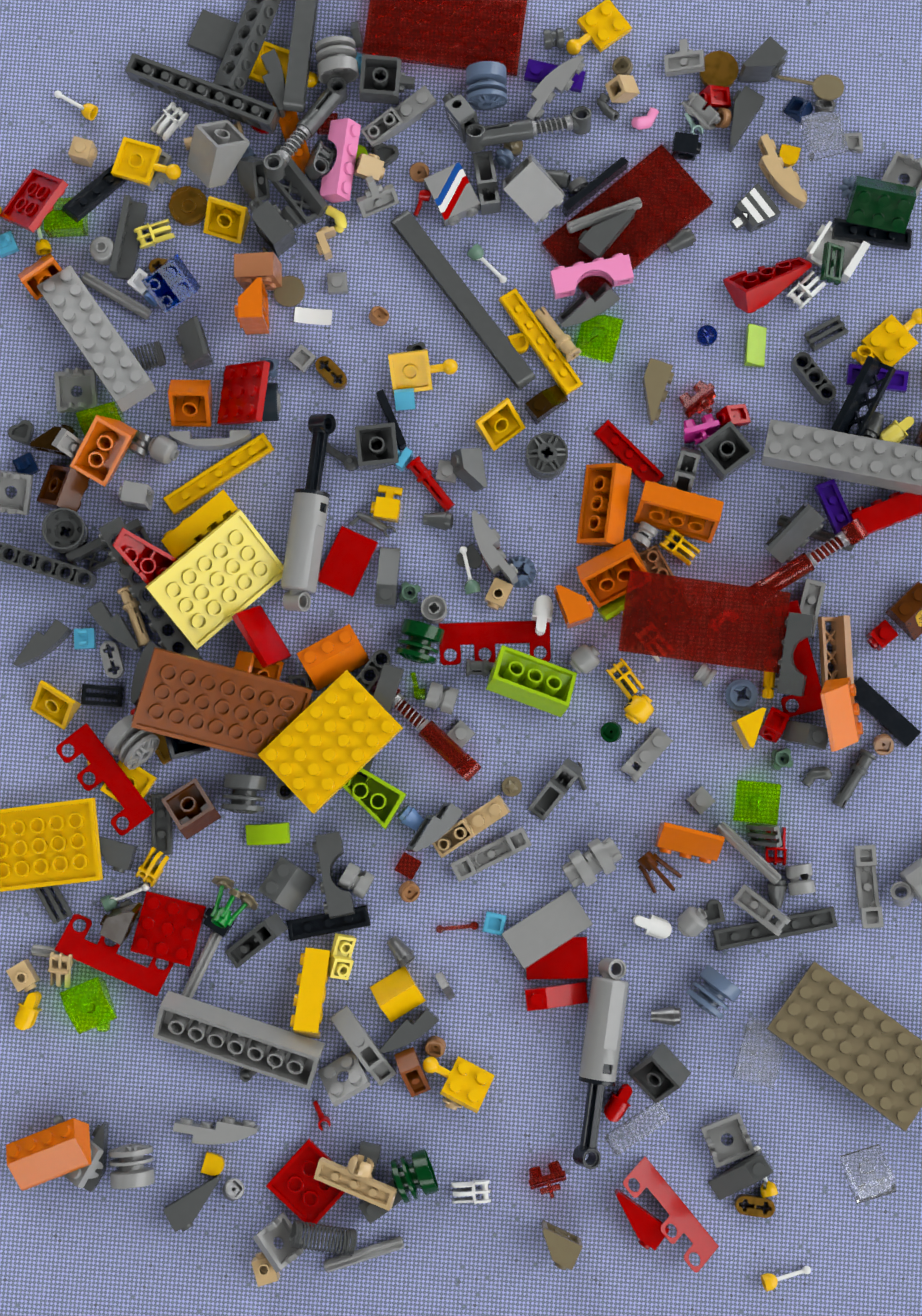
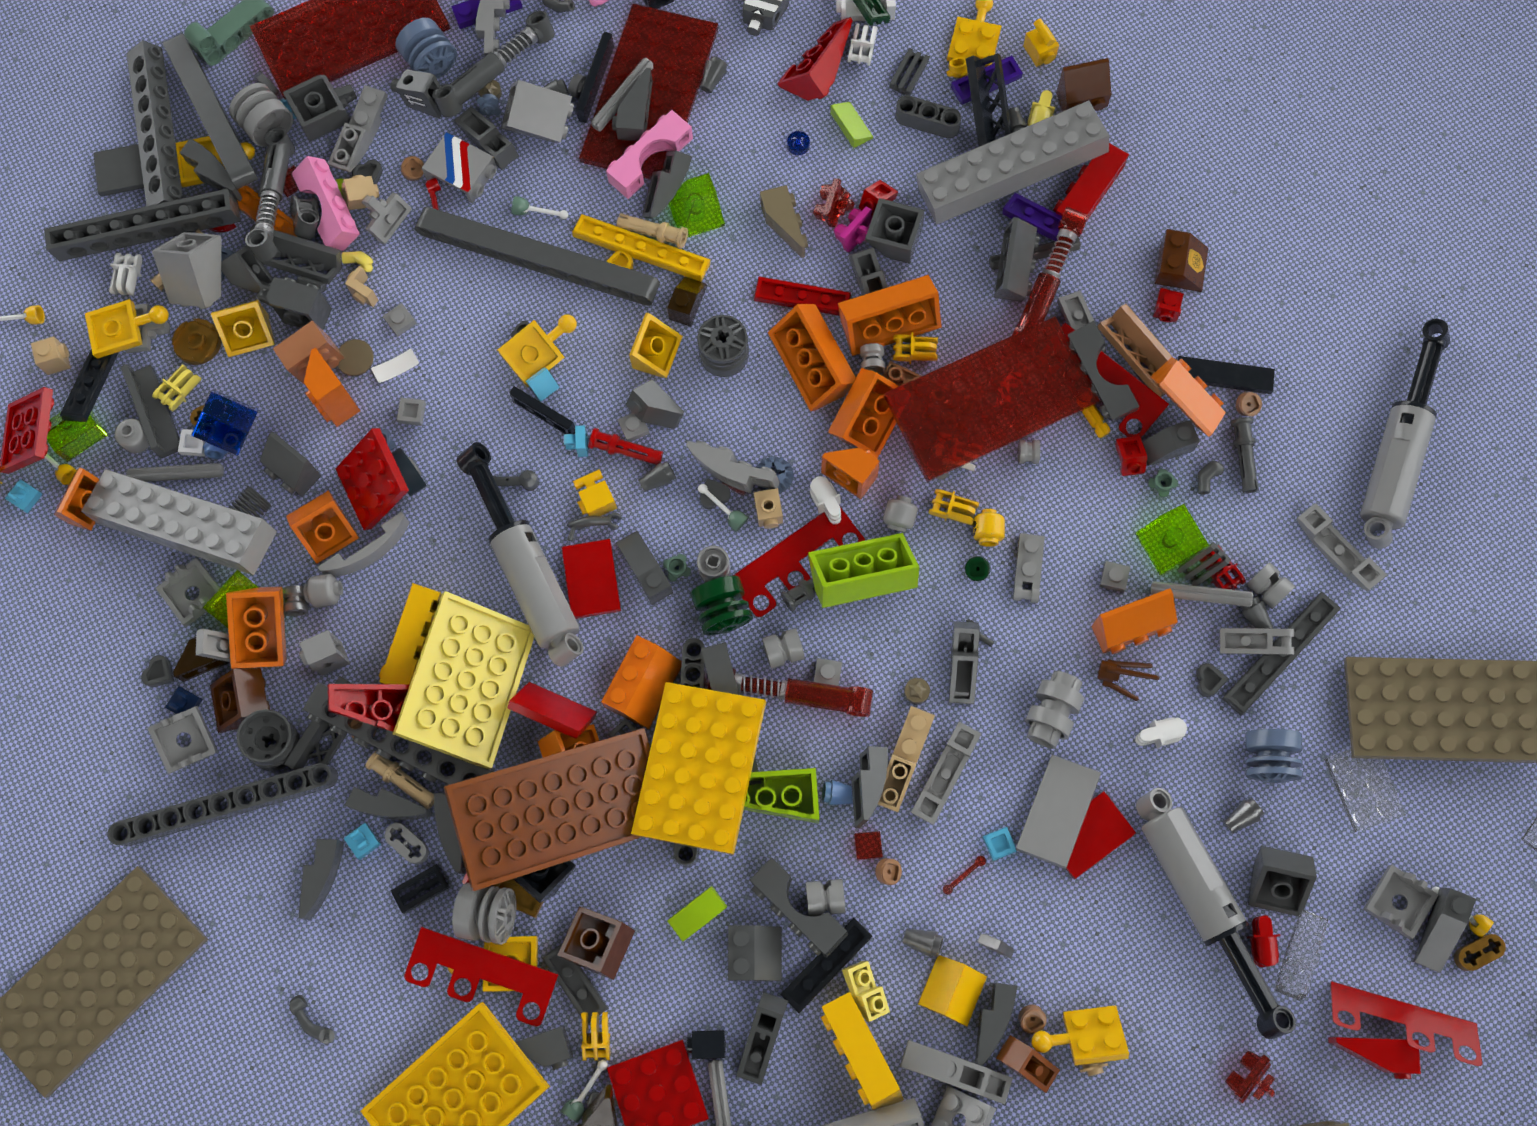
camera: 35 degrees left, 10 degrees down
(54, 704) = (373, 933): yellow slope -> none
(218, 474) = (397, 579): yellow tile -> none
(222, 916) = (709, 1035): plant -> none
(244, 793) = (644, 887): dark grey wheel -> none
(327, 376) = (451, 403): pearl gold beam -> none
(376, 446) = (545, 444): dark grey slope -> none
(379, 316) = (462, 323): medium nougat tile -> none
(419, 693) = (756, 661): clear neon green hand -> none
(555, 996) = (1116, 876): red slope -> none
(612, 609) = (892, 448): lime slope -> none
(692, 921) = (1198, 700): light grey head -> none
(748, 727) = (1111, 472): yellow slope -> none
(750, 693) = (1085, 441): sand blue gear -> none

